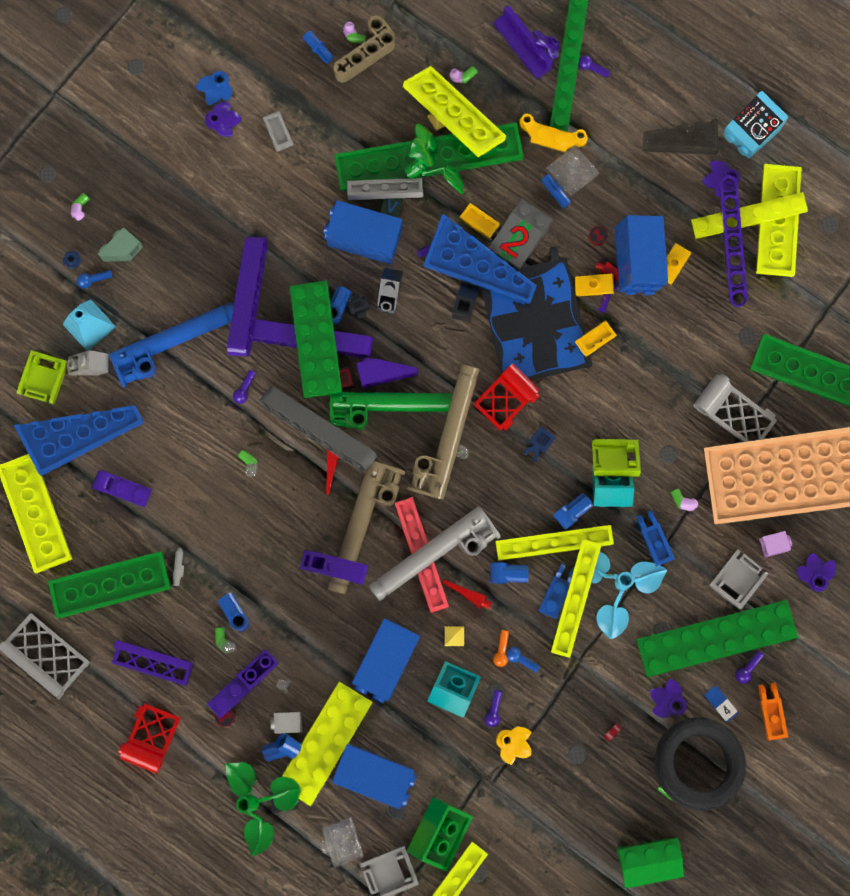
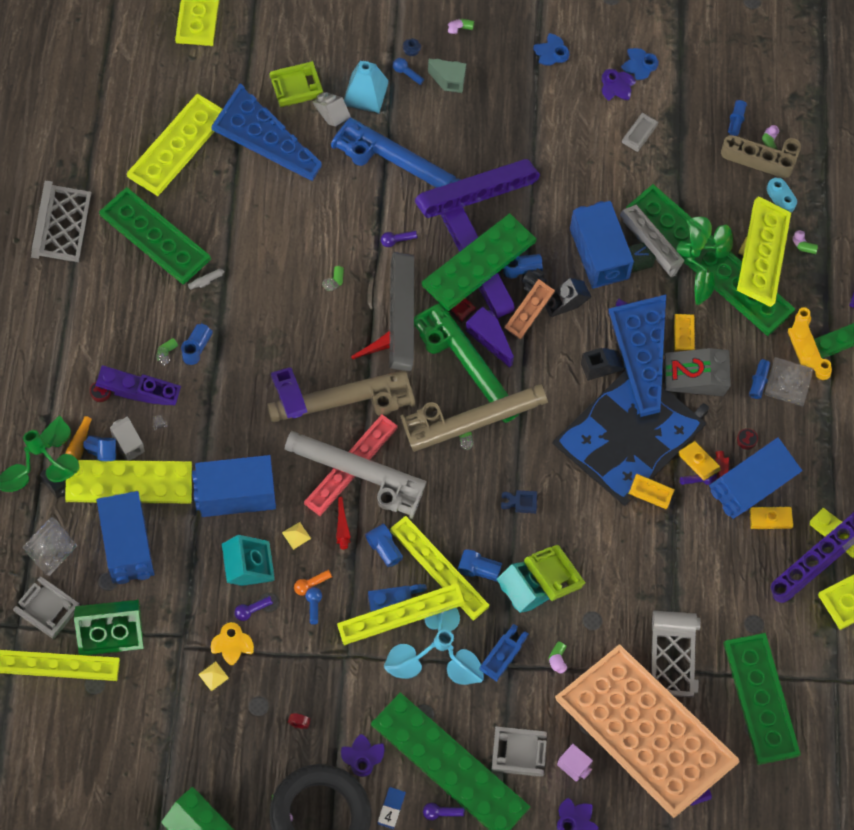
camera: 50 degrees right, 15 degrees down
(121, 488) = (243, 196): dark purple plate -> none
(144, 754) = (26, 347): red piece -> none
(149, 654) = (116, 303): dark purple fence -> none
(152, 151) = (549, 51): none -> blue plate
(263, 767) = (76, 445): none -> light orange piece
(382, 327) = (529, 309): none -> nougat plate
(408, 63) = (781, 193): none -> medium azure plate
(519, 386) = (558, 454): red piece -> none
(531, 774) = (213, 676): none -> light yellow slope

